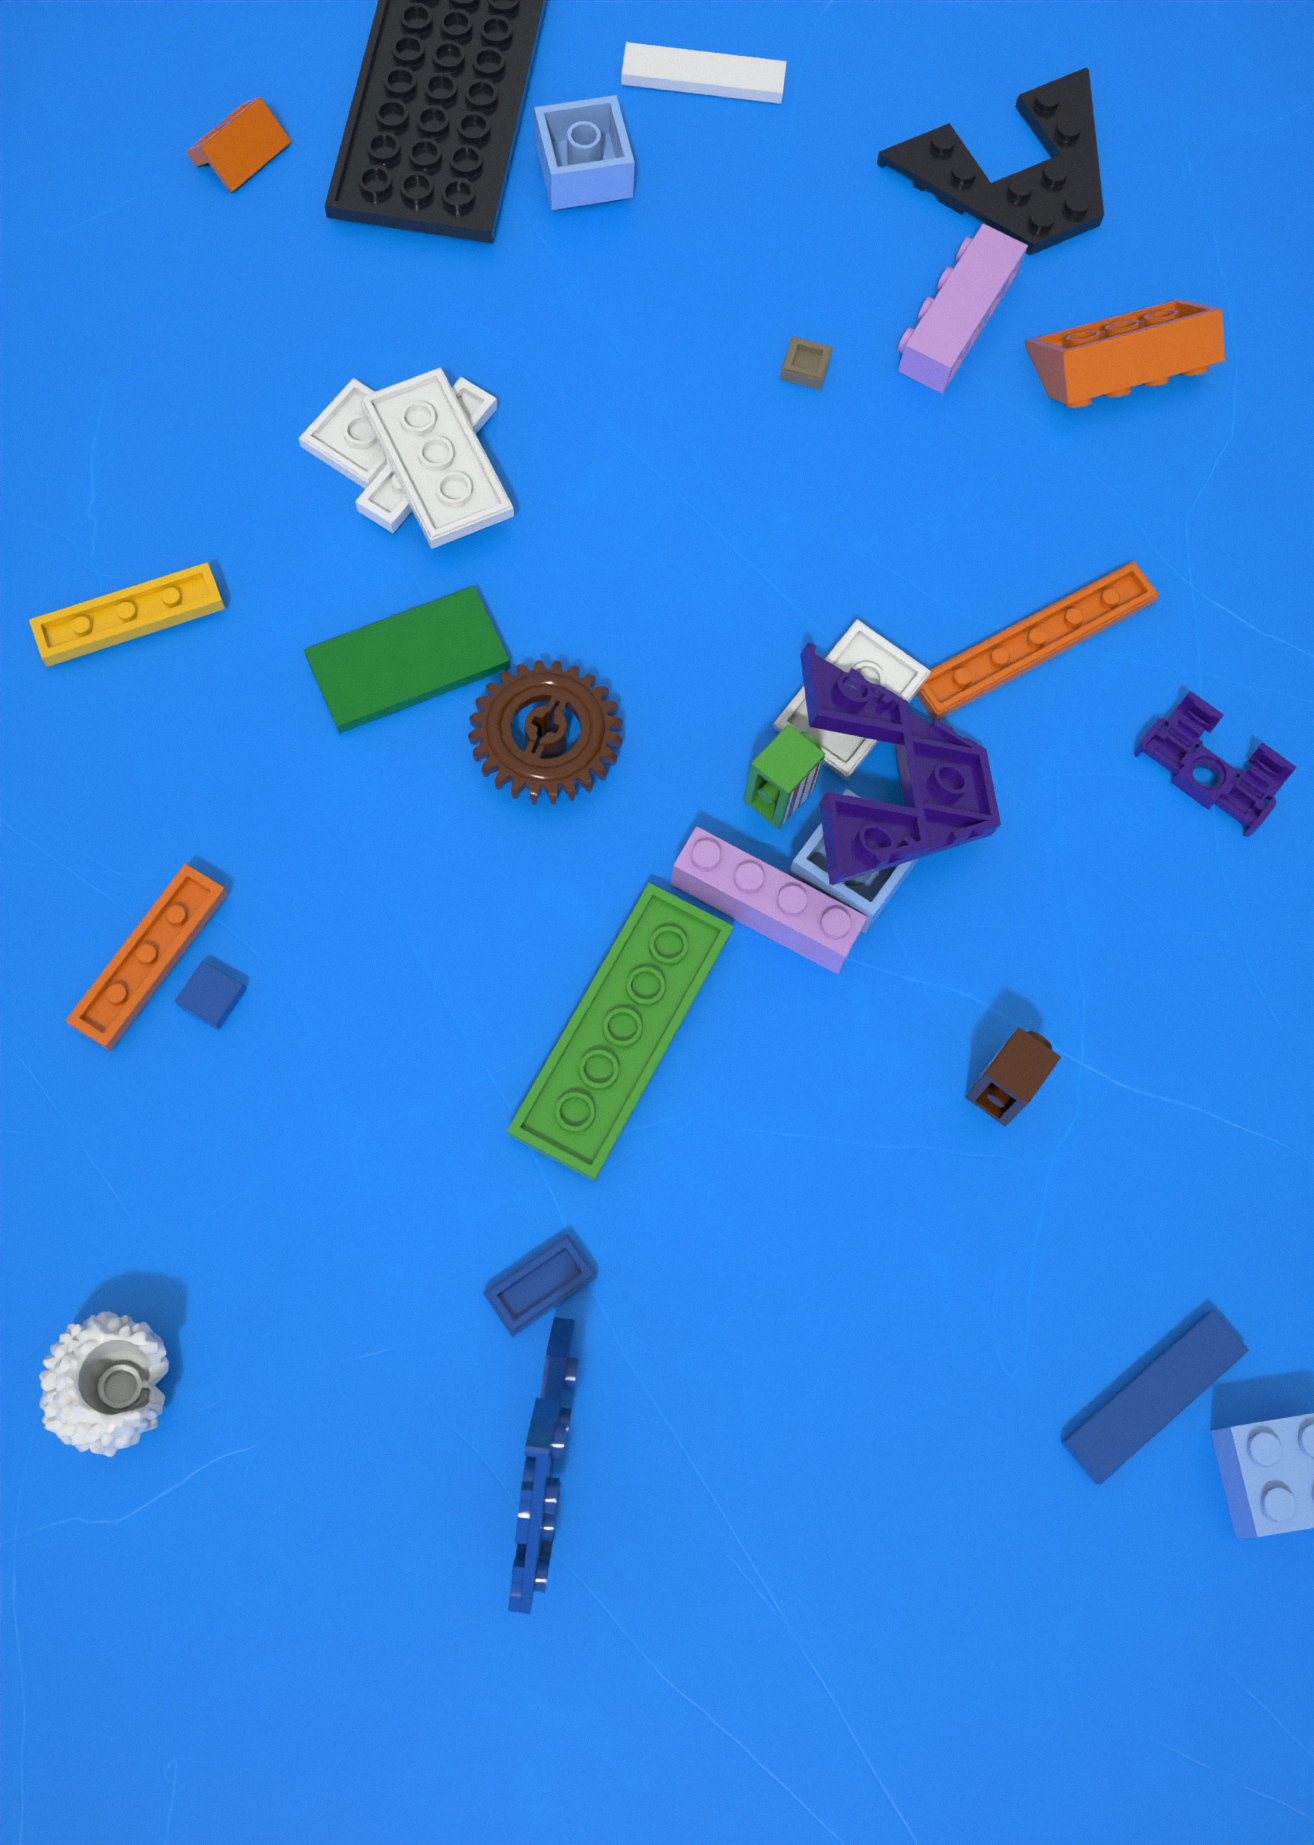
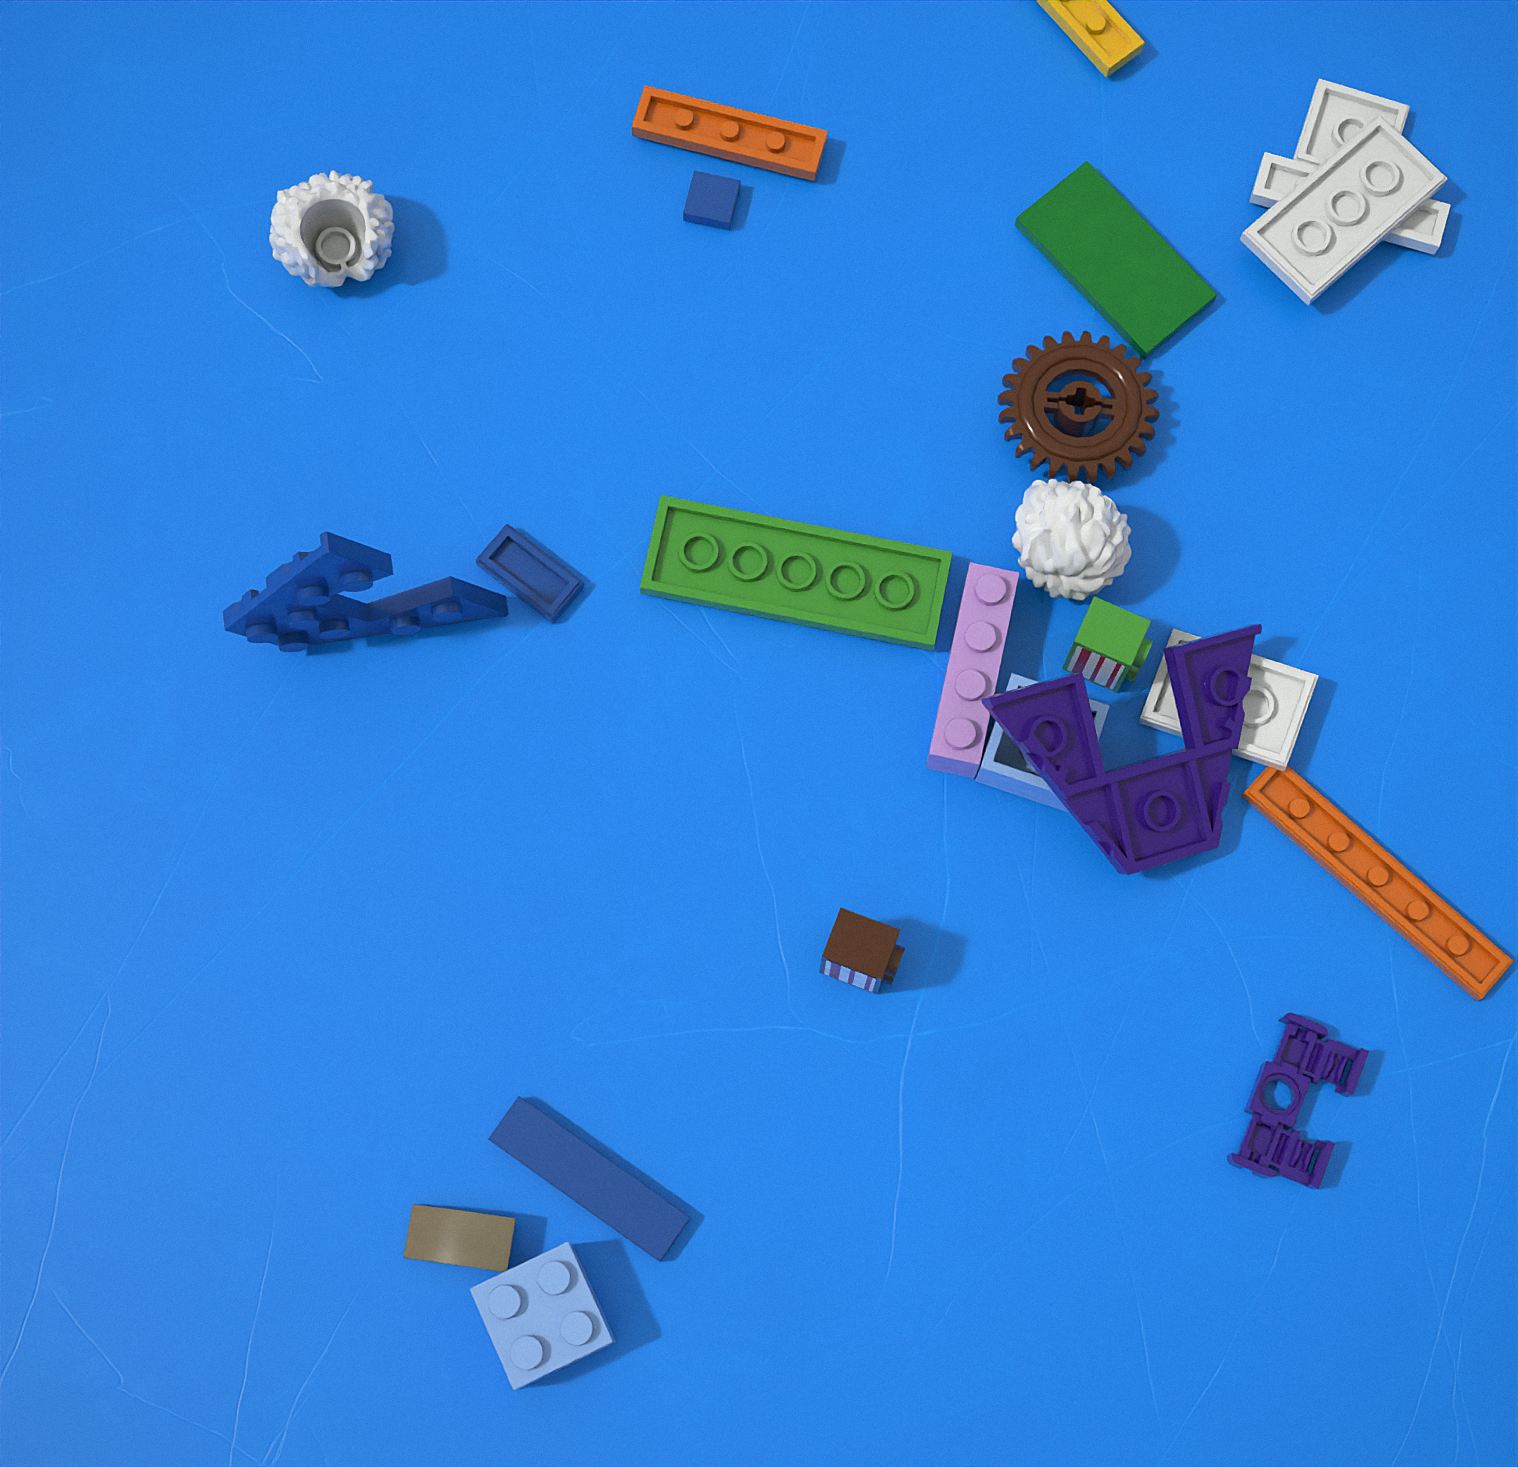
camera: 80 degrees right, 5 degrees up
(679, 771) = (1070, 538): none -> white hair
(1192, 1539) = (460, 1238): none -> dark tan slope

